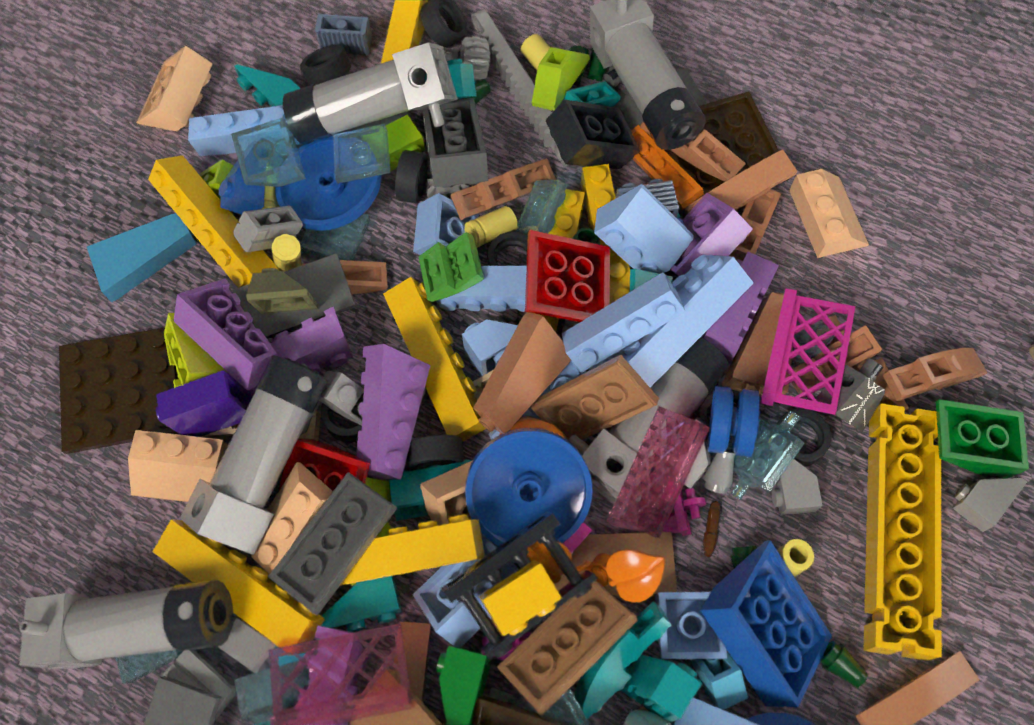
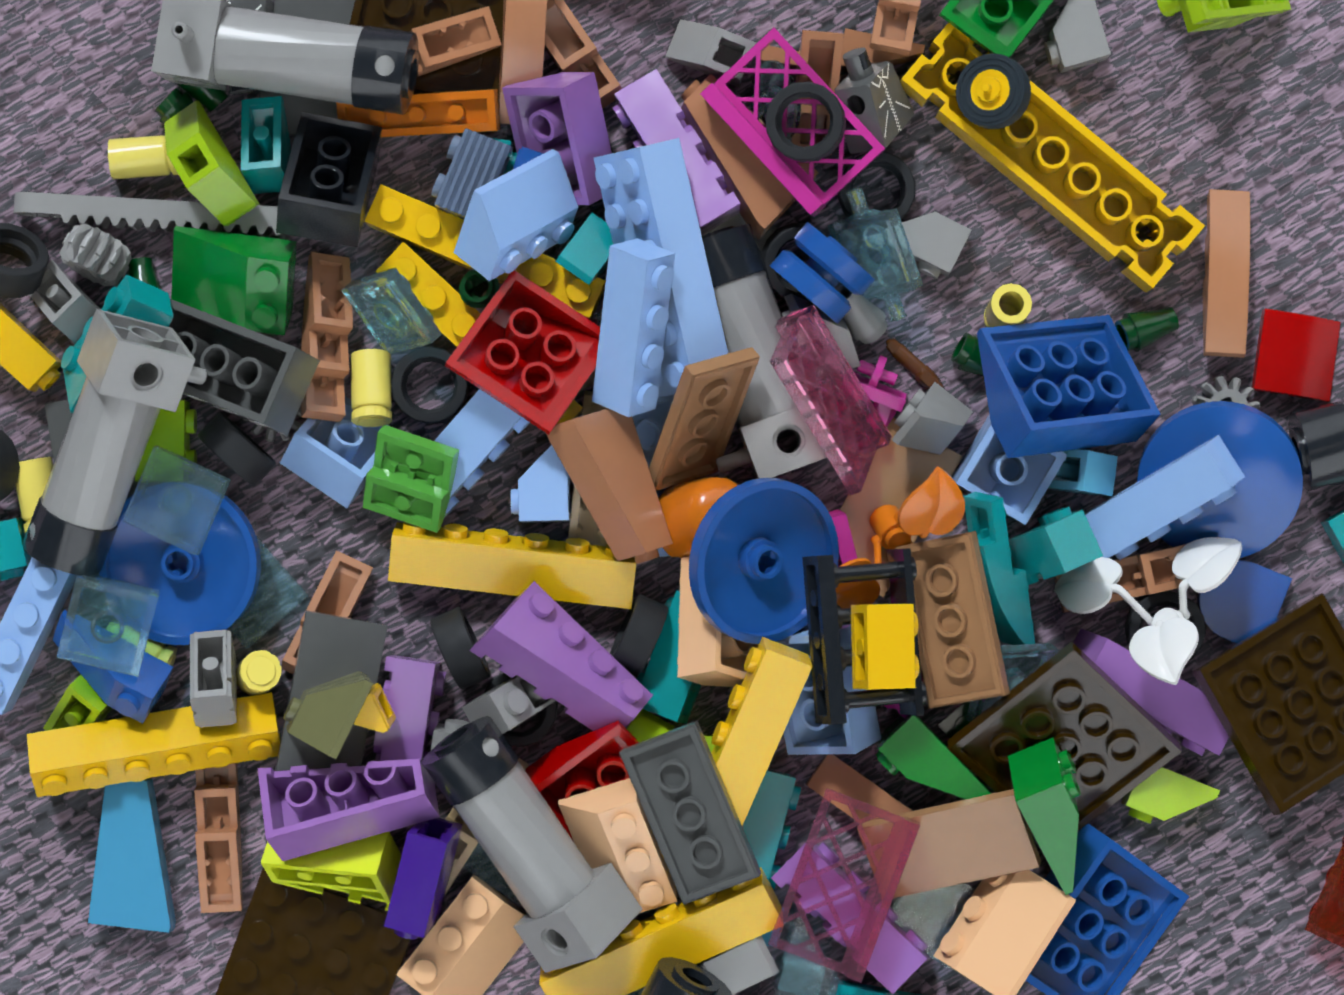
camera: 65 degrees left, 20 degrees up
(162, 297) = (218, 839): none -> nougat slope
(295, 315) = (376, 711): none -> yellow slope
(352, 360) = (455, 640): none -> black tyre
(509, 129) = (235, 277): none -> green slope
(686, 554) = (931, 420): none -> light grey slope
(810, 286) = (708, 49): none -> light grey slope
(820, 332) = (781, 102): none -> black tyre
(920, 458) = (993, 91): none -> black wheel

